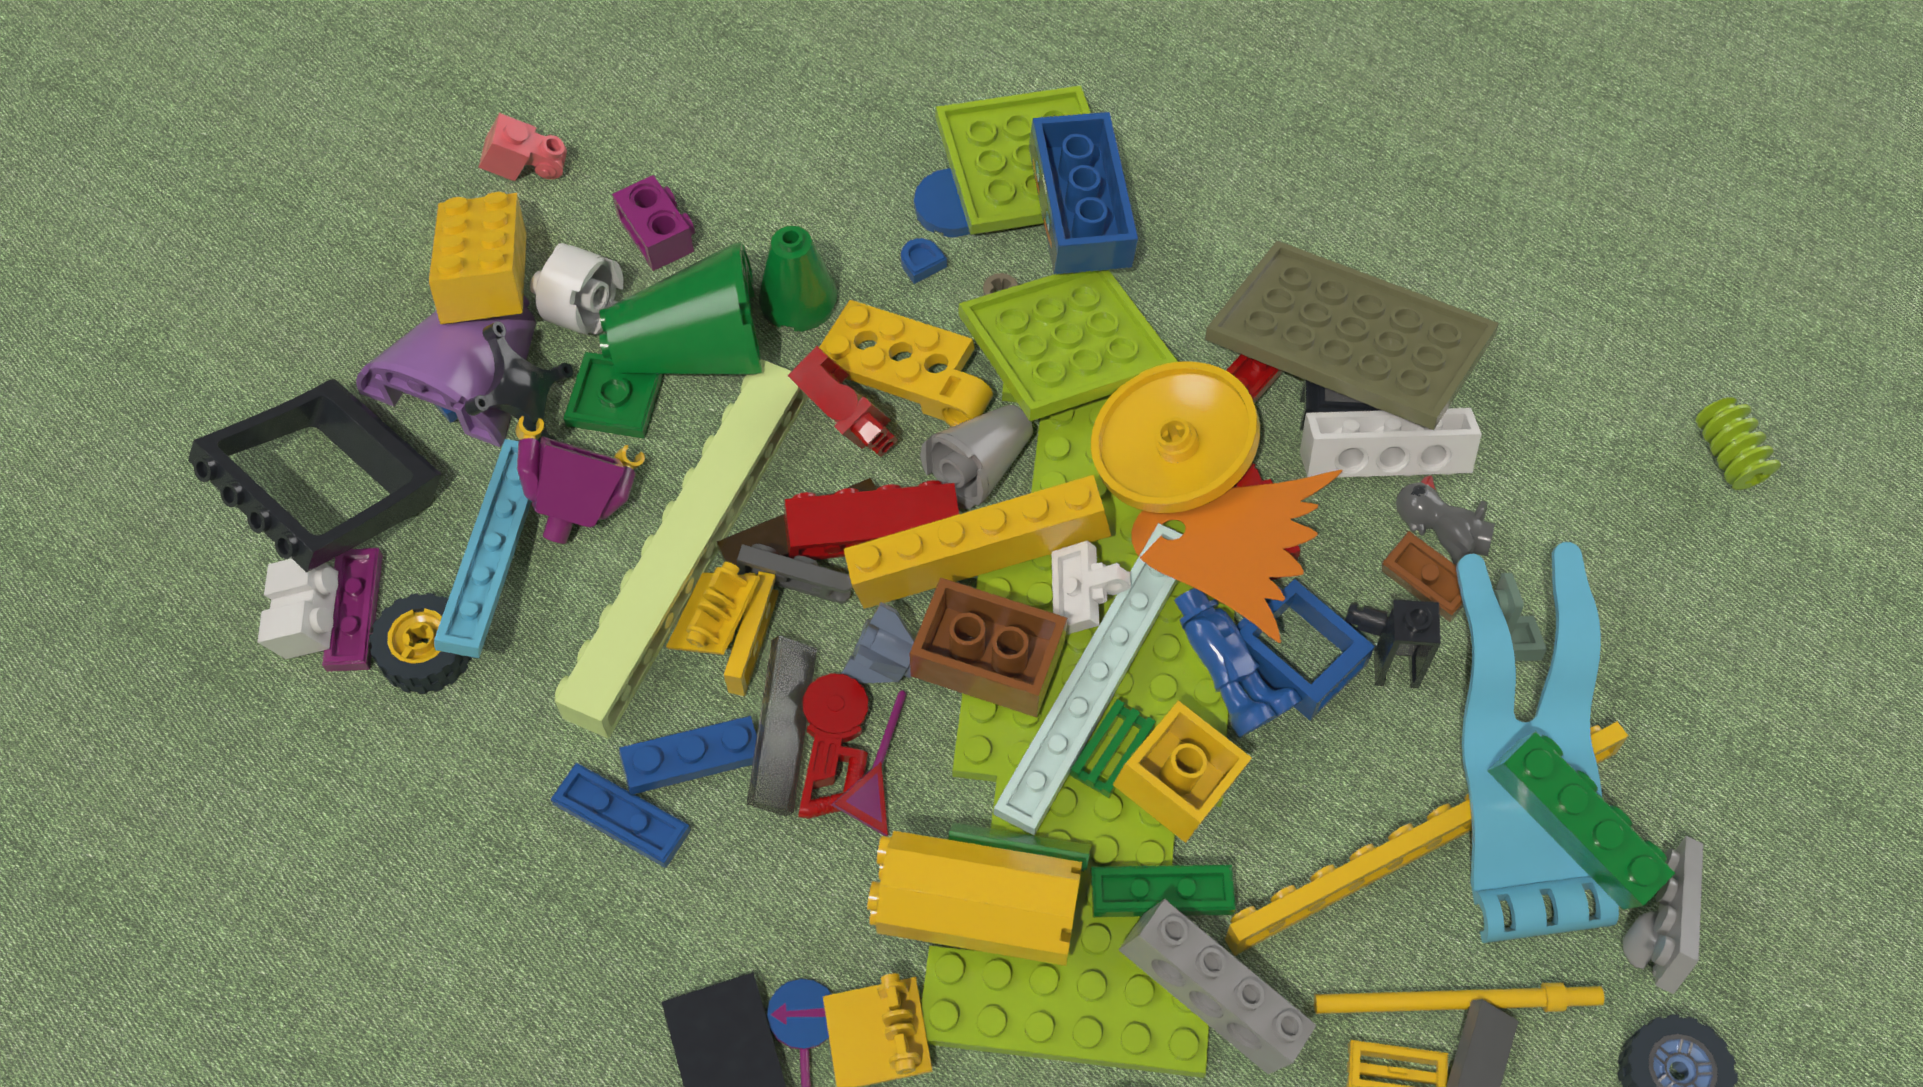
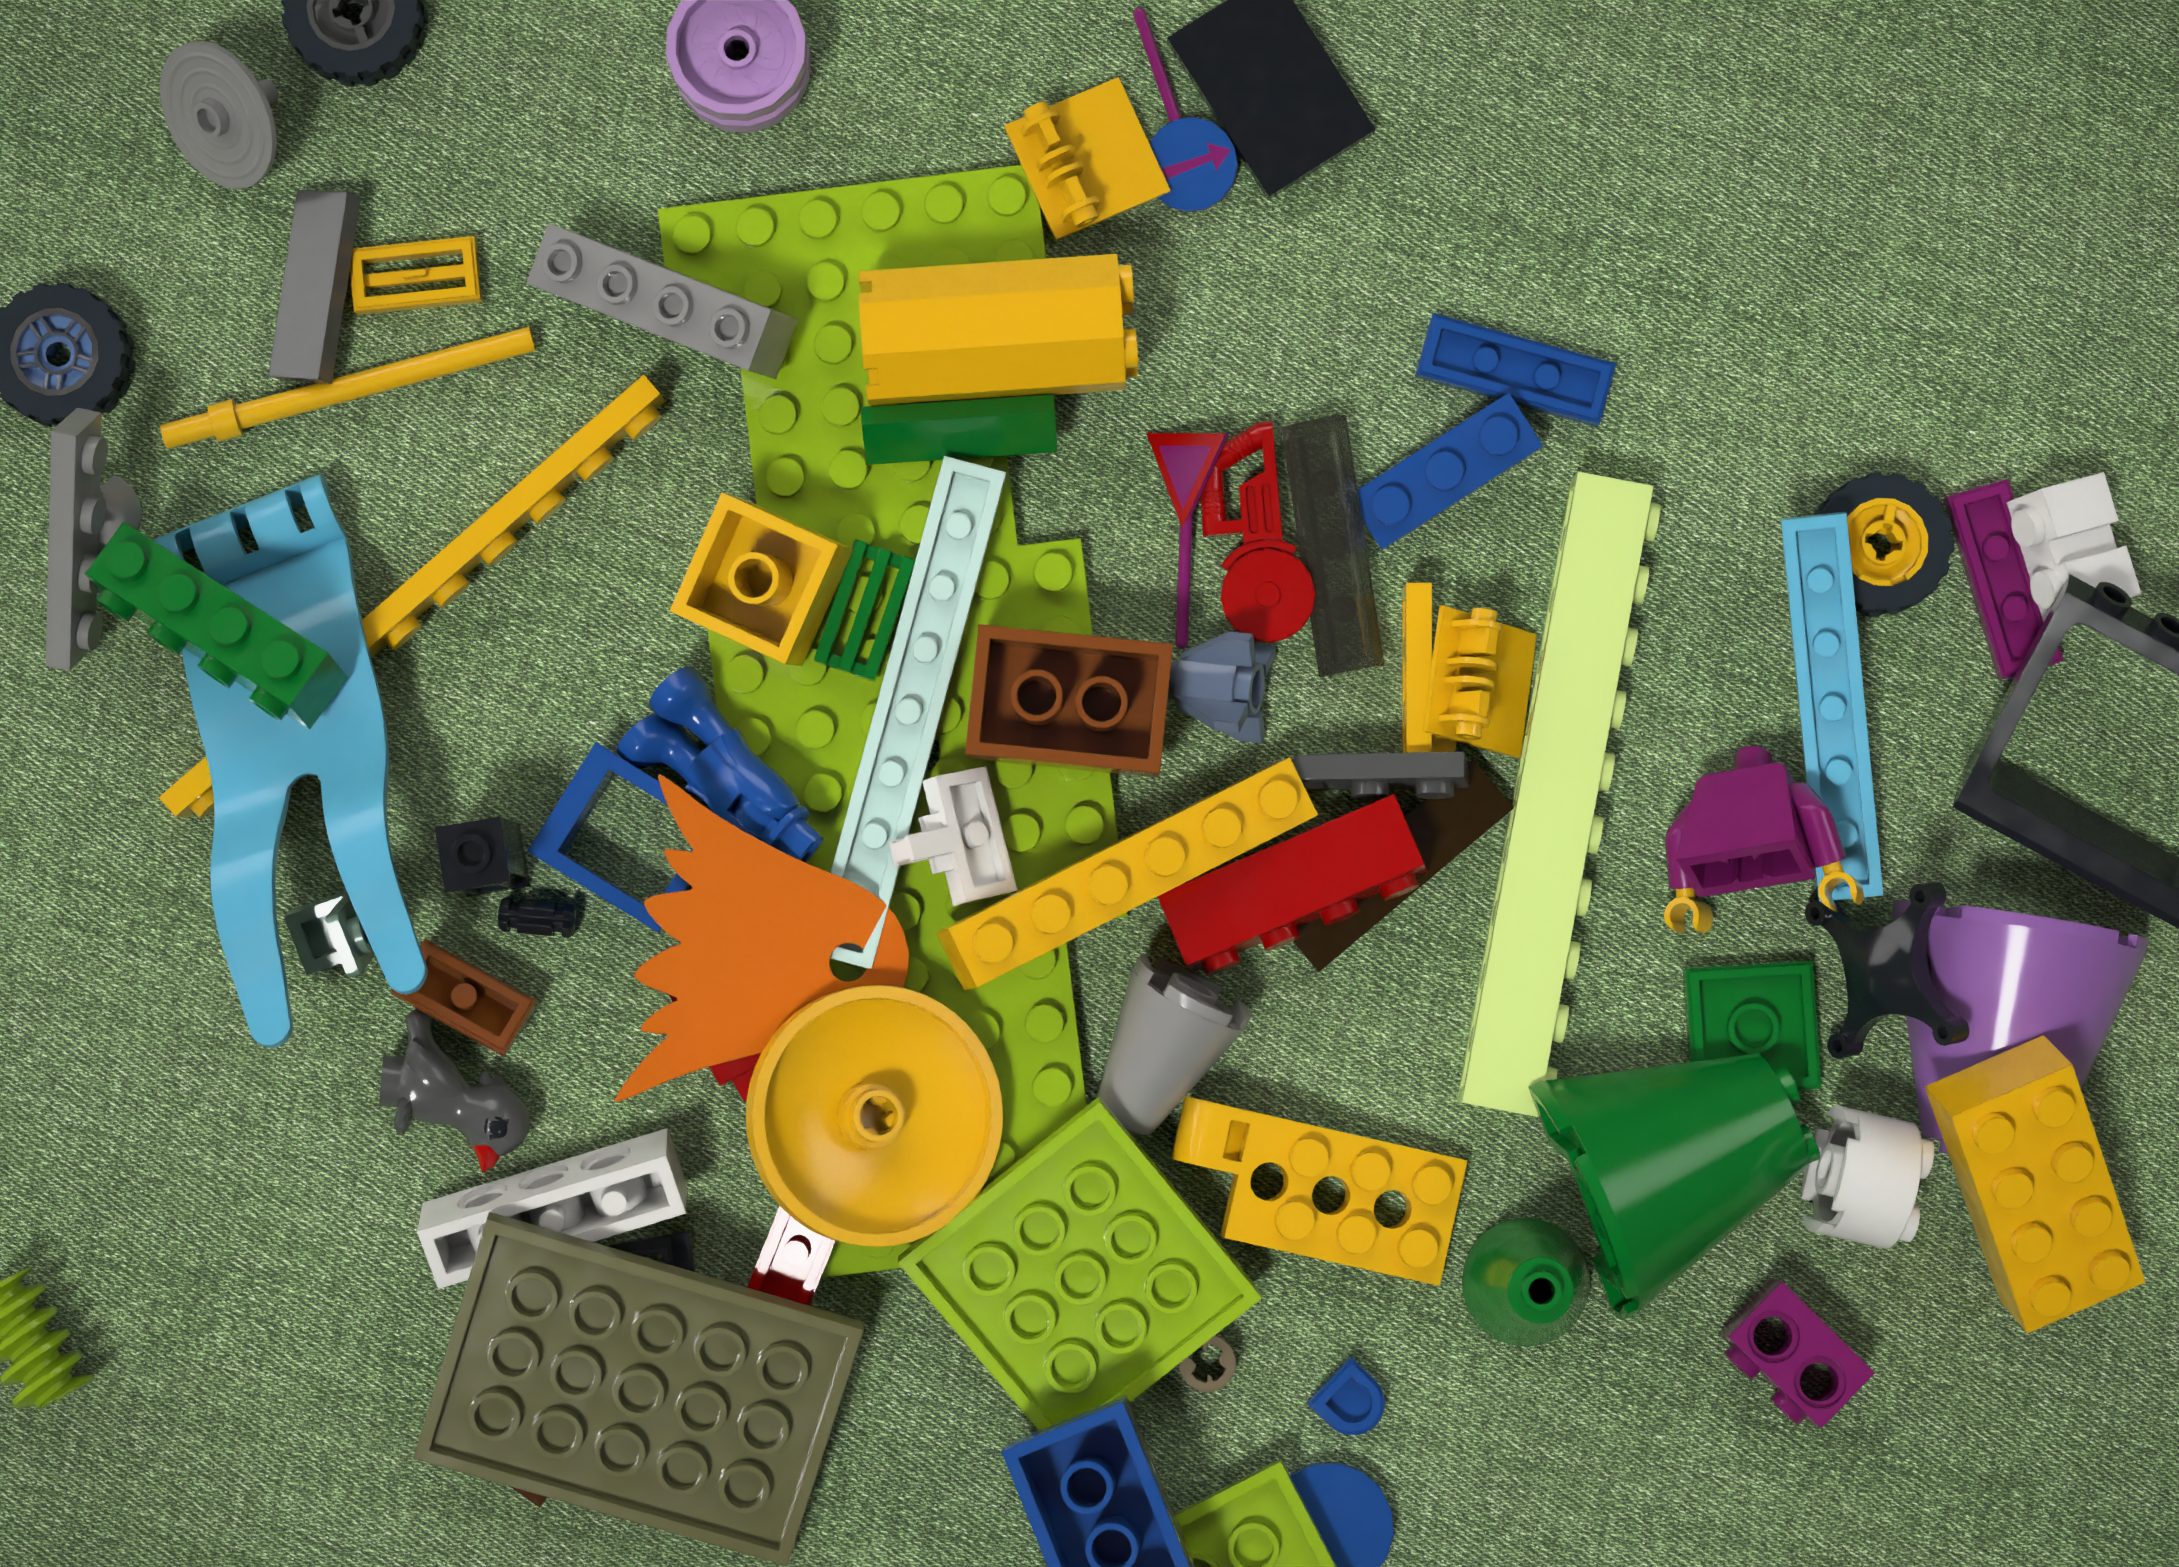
camera: 165 degrees right, 25 degrees up
(515, 144) = (2064, 1437): coral brick -> none
(854, 415) = (1386, 1061): red hips -> none
(1136, 889) = (757, 424): green tile -> none

